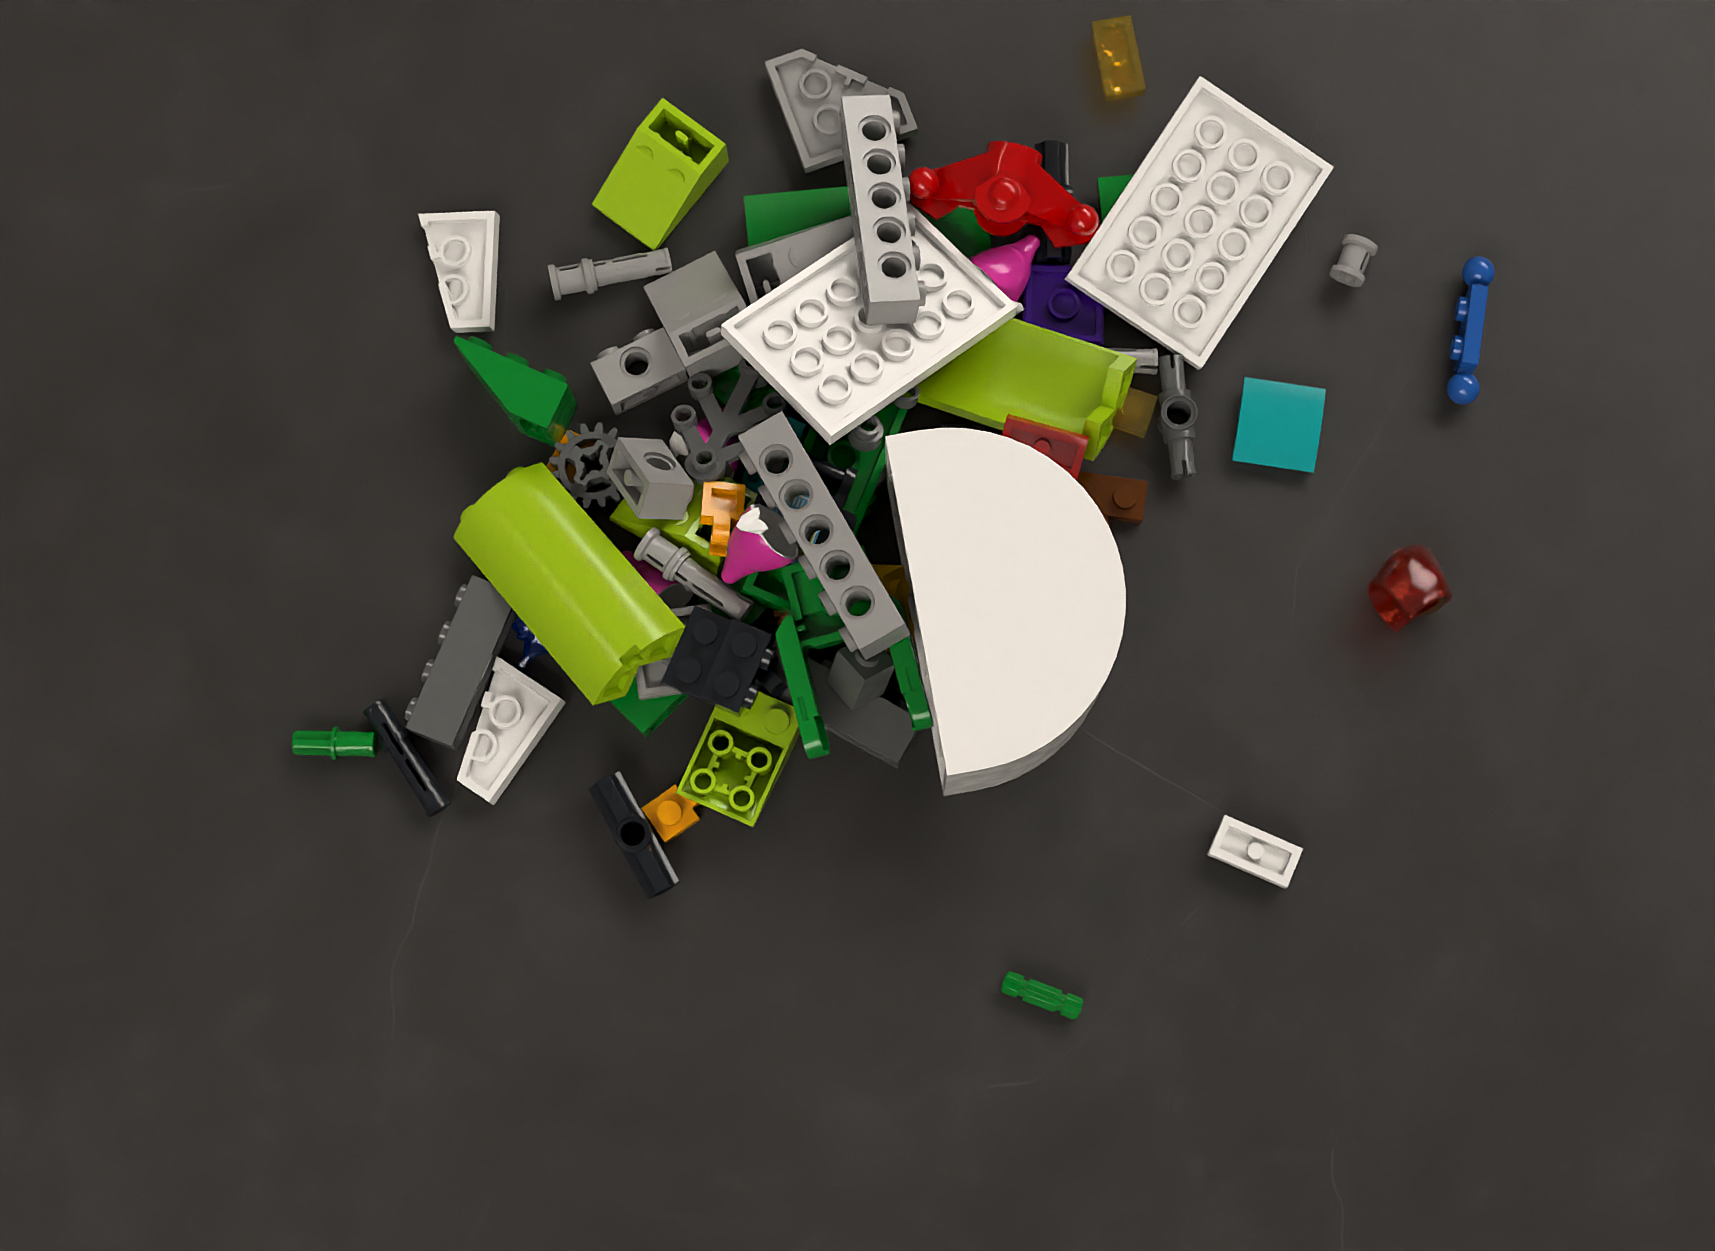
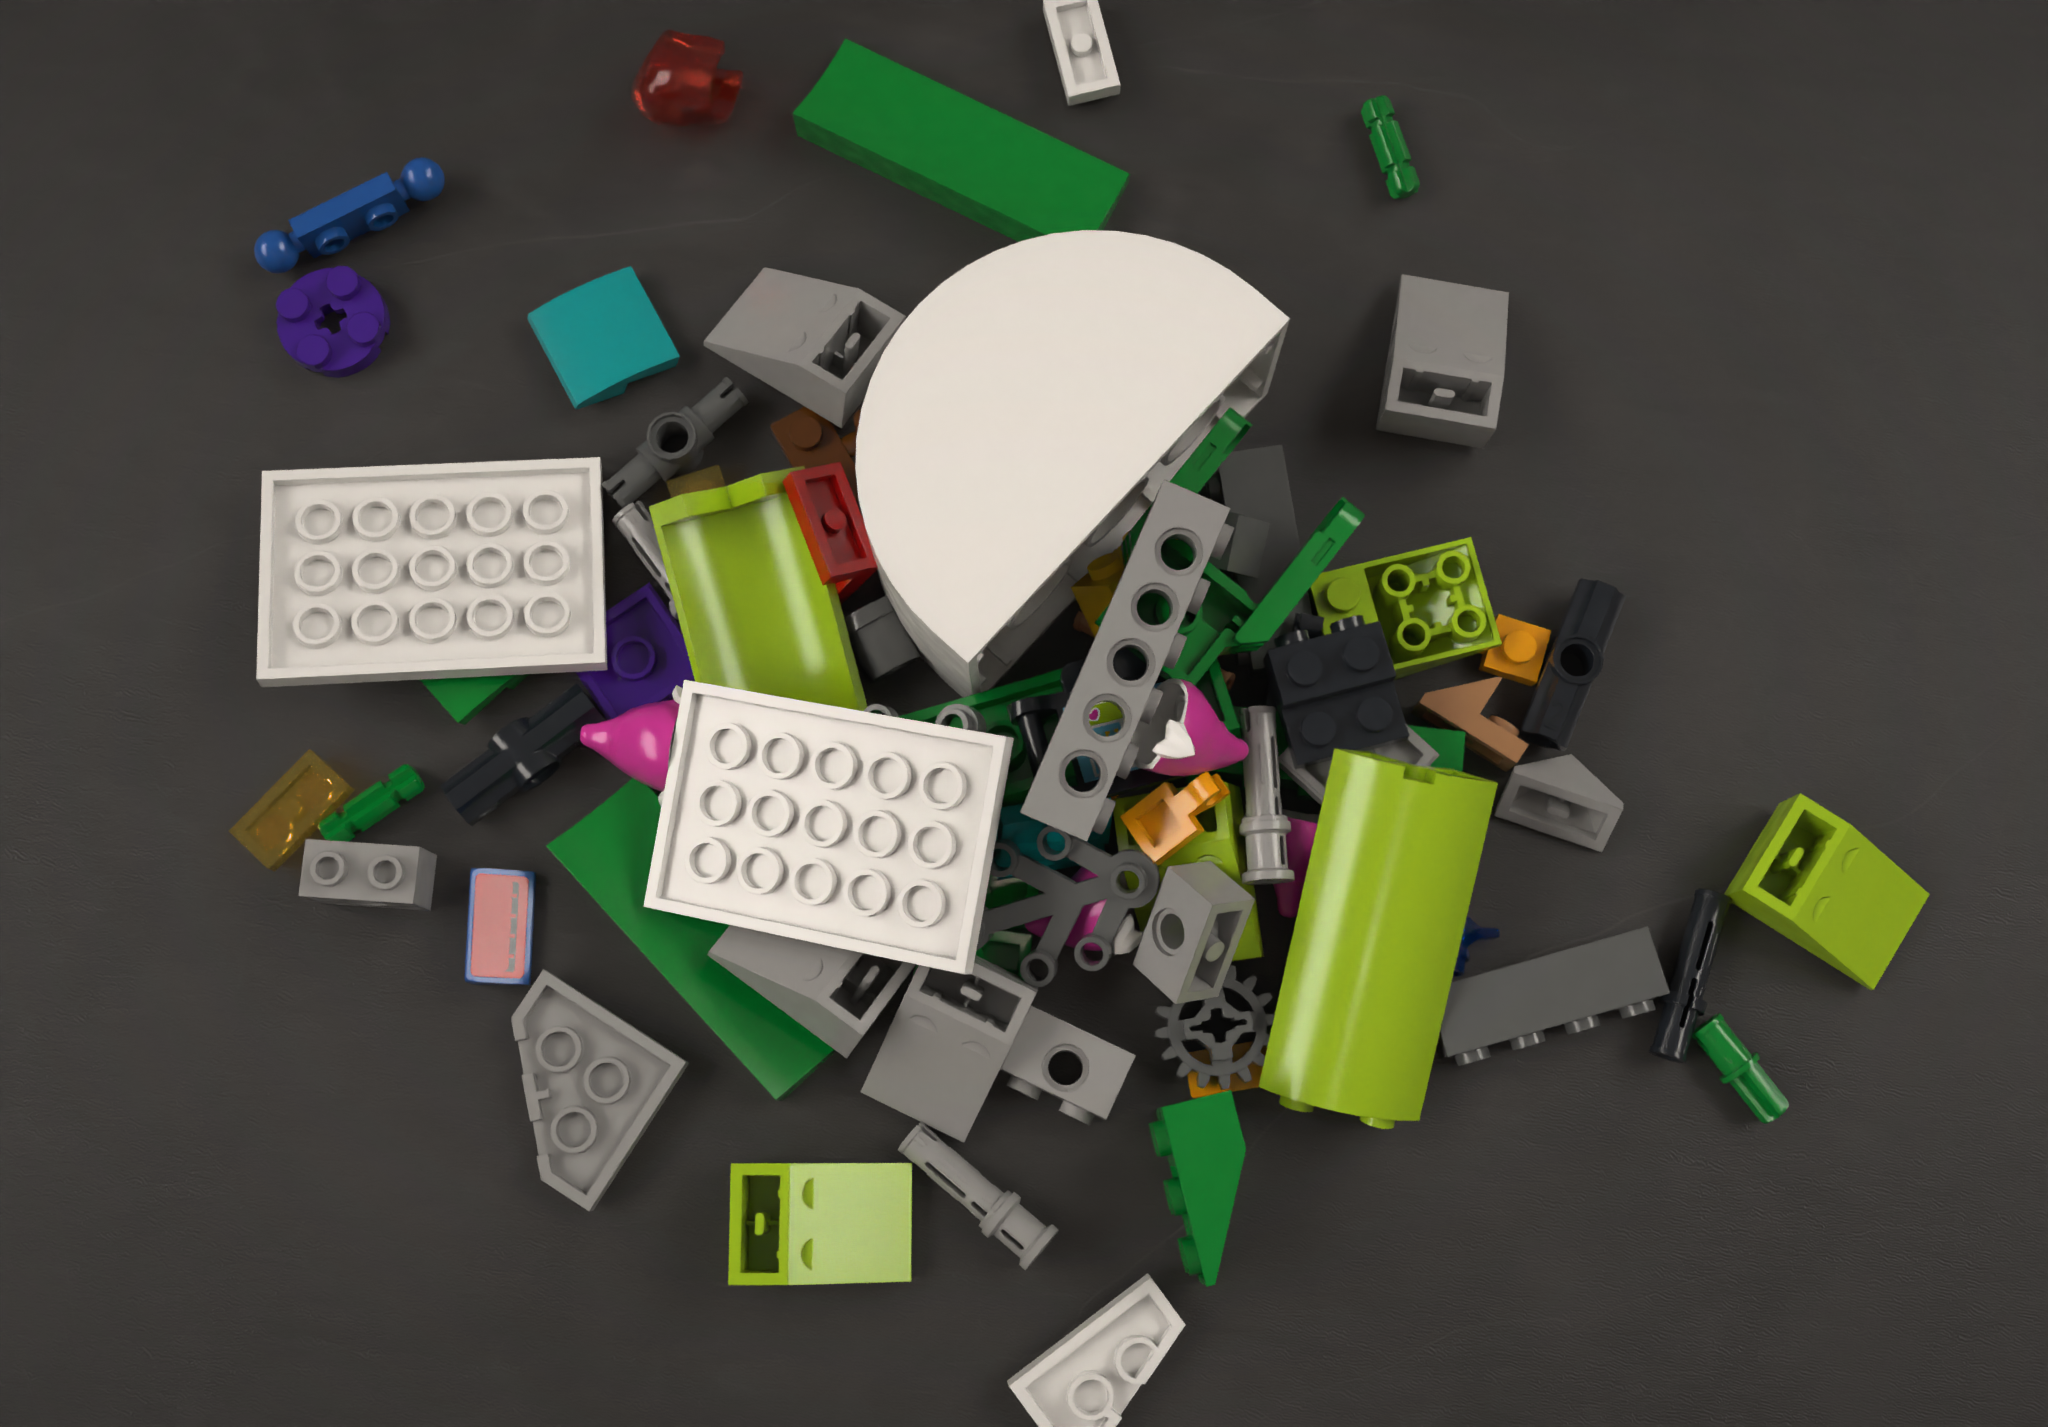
camera: 130 degrees left, 0 degrees up
(387, 873) = (1828, 890): none -> lime slope
(508, 729) = (1567, 891): white wing -> none
(564, 768) = (1562, 801): none -> light grey slope
(659, 744) = (1460, 710): none -> medium nougat slope
(875, 181) = (571, 1008): light grey brick -> none
(879, 912) = (1445, 362): none -> light grey slope
(960, 122) = (500, 927): none -> slope
(1005, 192) = (558, 795): red piece -> none
(1045, 71) = (367, 874): none -> light grey brick
(1088, 103) = (372, 804): none -> green axle
(1182, 536) = (807, 339): none -> light grey slope
(1239, 725) = (955, 149): none -> green arch
(1353, 260) = (356, 388): light grey bush -> none
(1390, 290) = (304, 309): none -> dark purple plate

